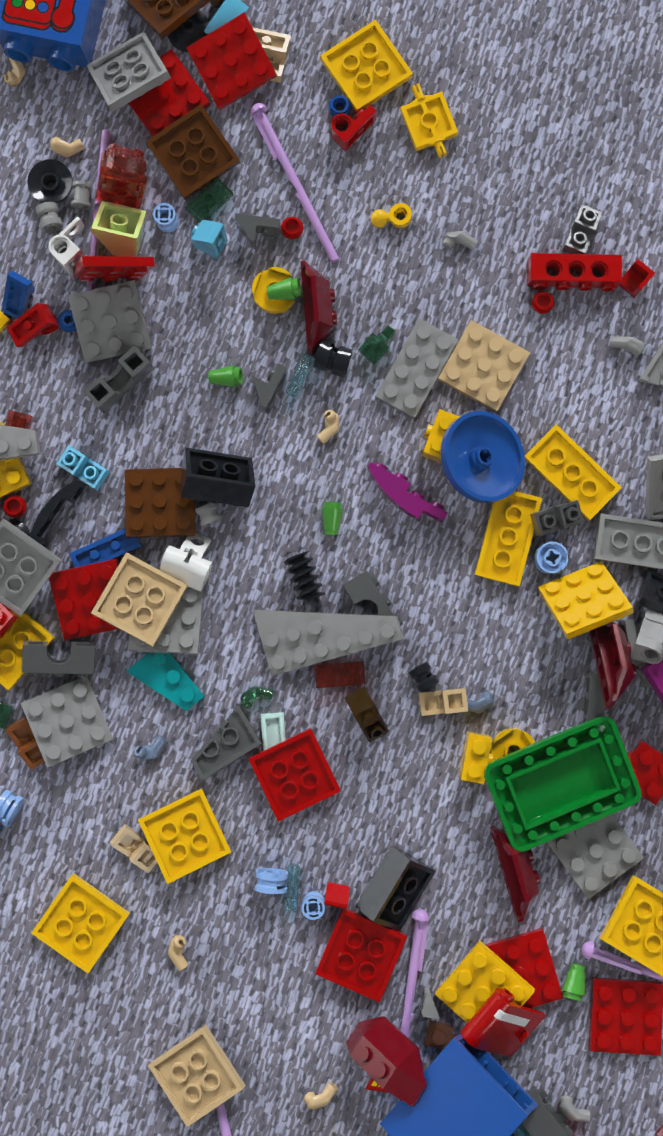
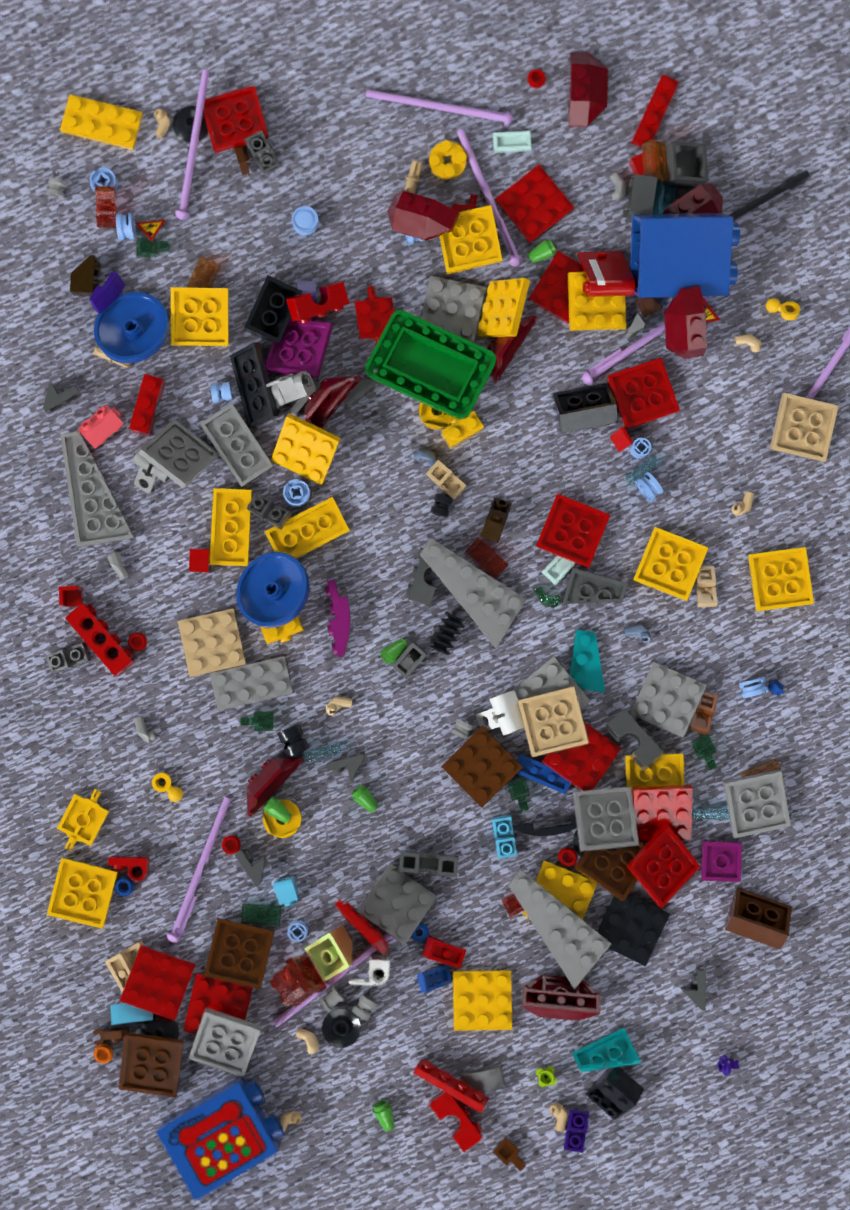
camera: 135 degrees left, 0 degrees up
(110, 515) = (518, 791): none -> clear green plate
(217, 477) = (434, 744): black slope -> none
(311, 523) = (410, 659): none -> dark grey slope
(555, 899) = (503, 308): none -> yellow plate
(566, 417) = (199, 560): none -> red panel

